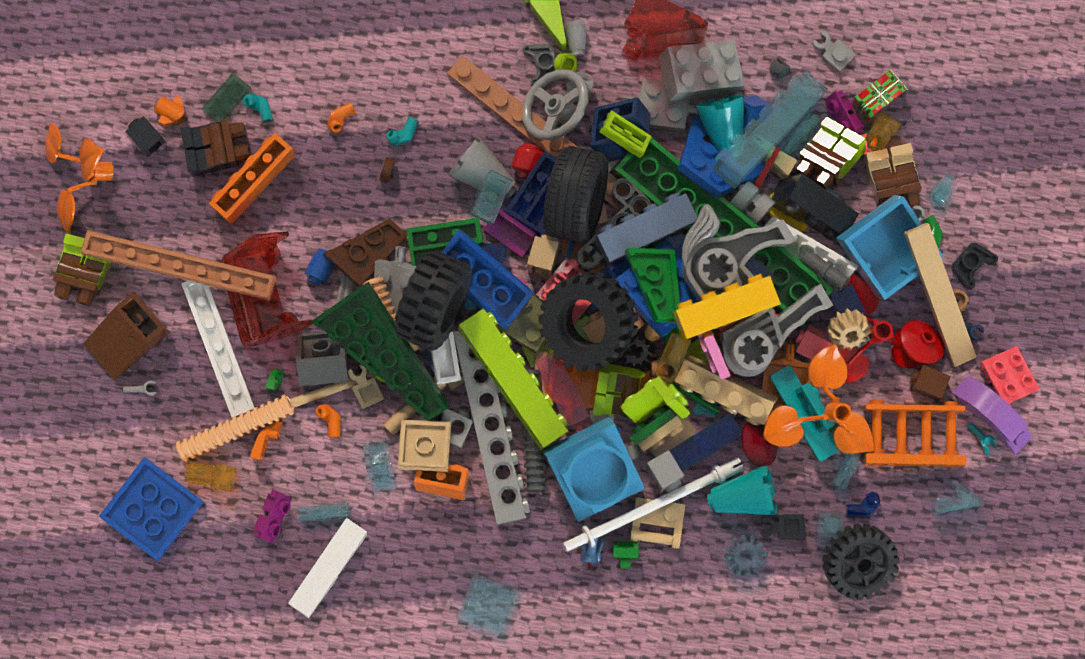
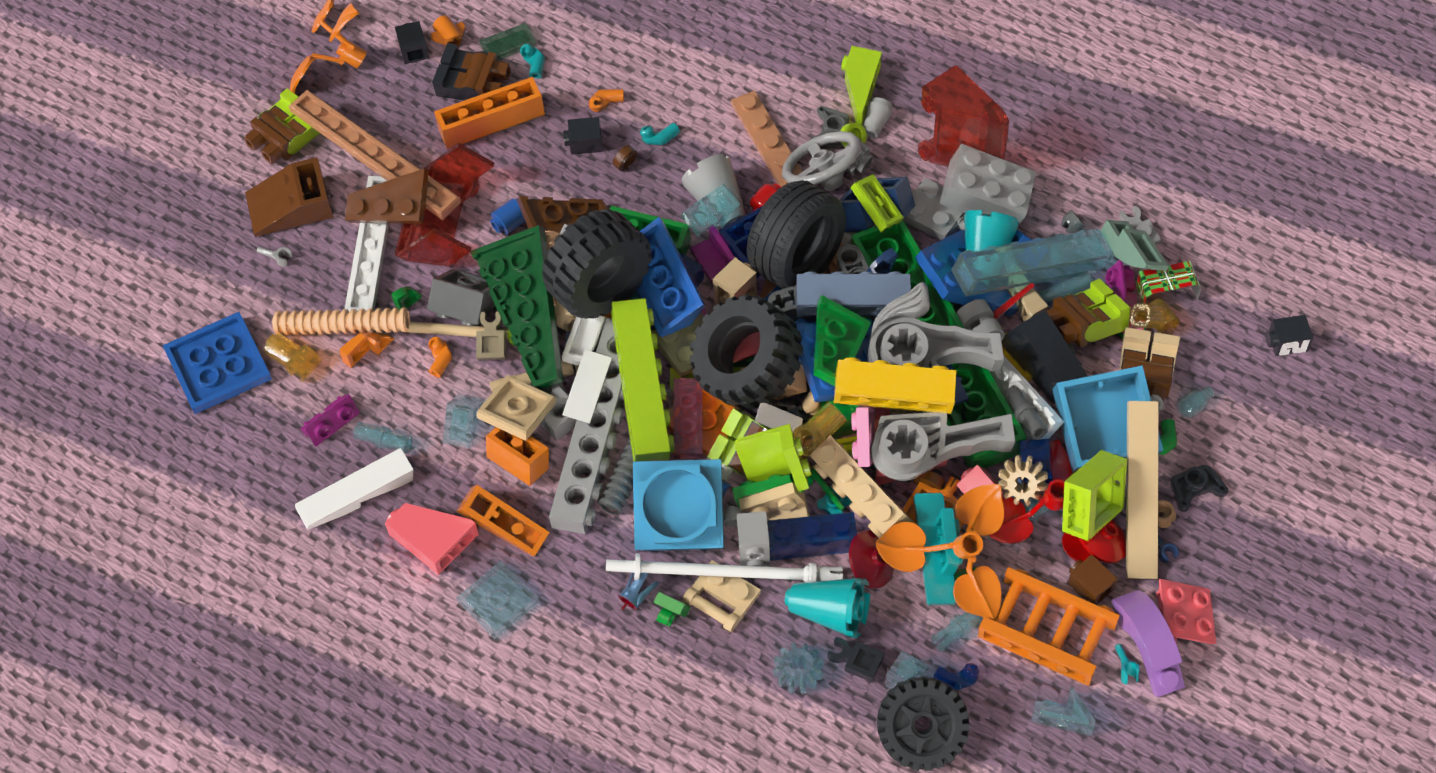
camera: 25 degrees right, 20 degrees down
(219, 305) = (390, 201): none -> reddish brown wing
(342, 164) = (583, 135): none -> black brick
(408, 579) = (431, 534): none -> coral slope
(457, 540) = (502, 520): none -> orange slope
(470, 400) = (587, 386): none -> white sticker
(637, 362) = (775, 417): none -> white sticker
(656, 190) = (884, 263): none -> dark blue tile
(842, 77) = (1133, 246): none -> sand green slope
(909, 319) = (1094, 495): none -> lime window
(991, 100) = (1289, 335): none -> black brick

